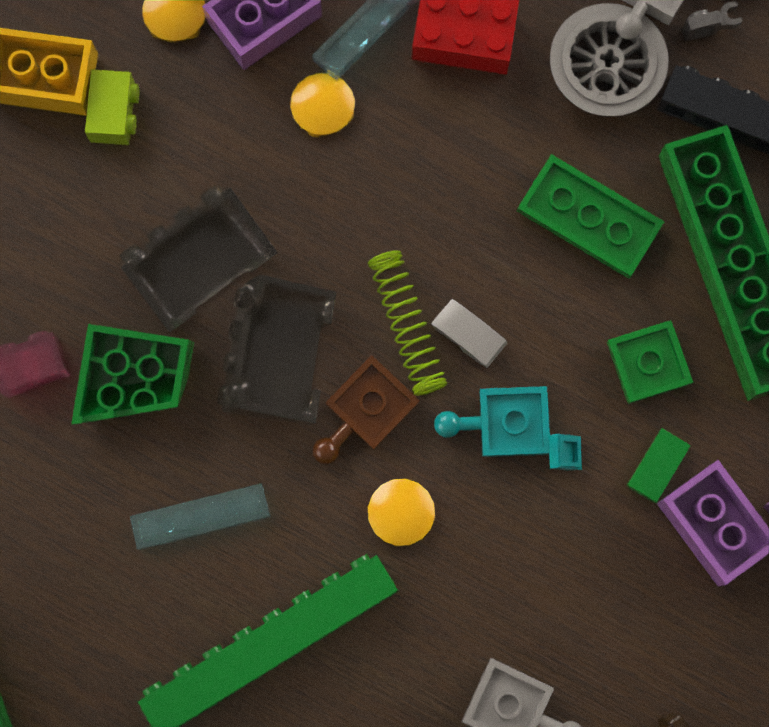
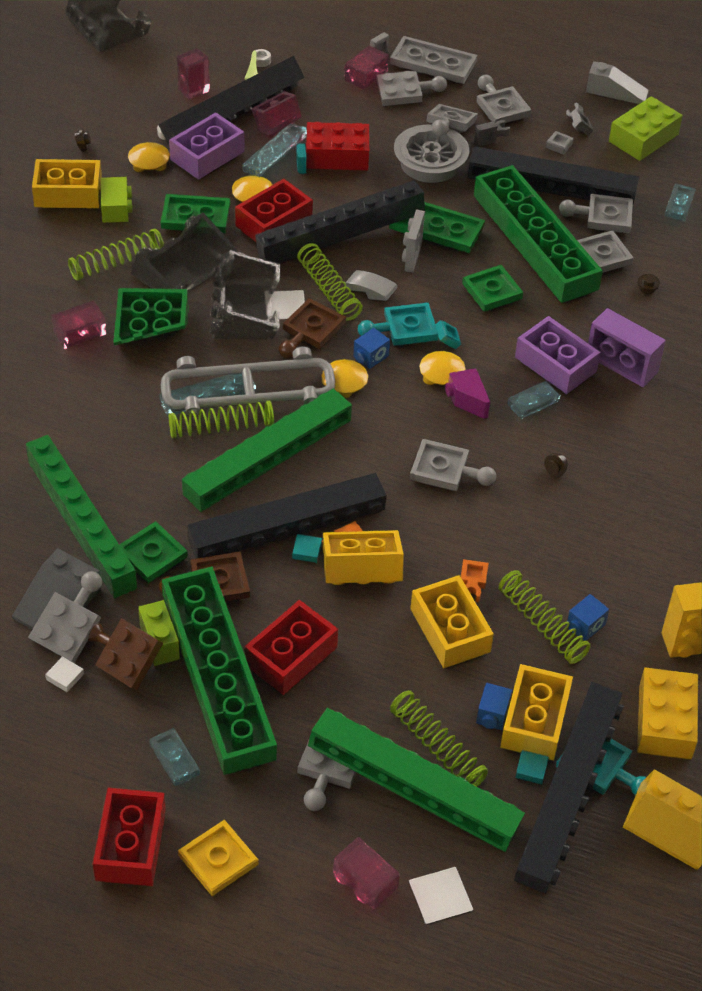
camera: 10 degrees left, 30 degrees down
(35, 250) = (152, 241): none -> lime piece
(172, 489) = (187, 369): none -> light grey bar
(228, 149) = (180, 208): none -> green plate
(279, 582) = (267, 413): none -> lime piece
(341, 348) = (287, 302): none -> white sticker
(344, 172) = (272, 208): none -> red brick
(405, 49) = (301, 158): none -> teal tile
(442, 211) = (341, 222): none -> black brick
(446, 468) = (371, 348): none -> blue brick
(546, 513) = (437, 366): none -> yellow dish
(548, 254) = (413, 240): none -> light grey plate
(574, 573) = (468, 392): none -> magenta slope
(658, 465) = (507, 340): green tile -> none
(667, 591) = (533, 399): none -> clear light blue plate

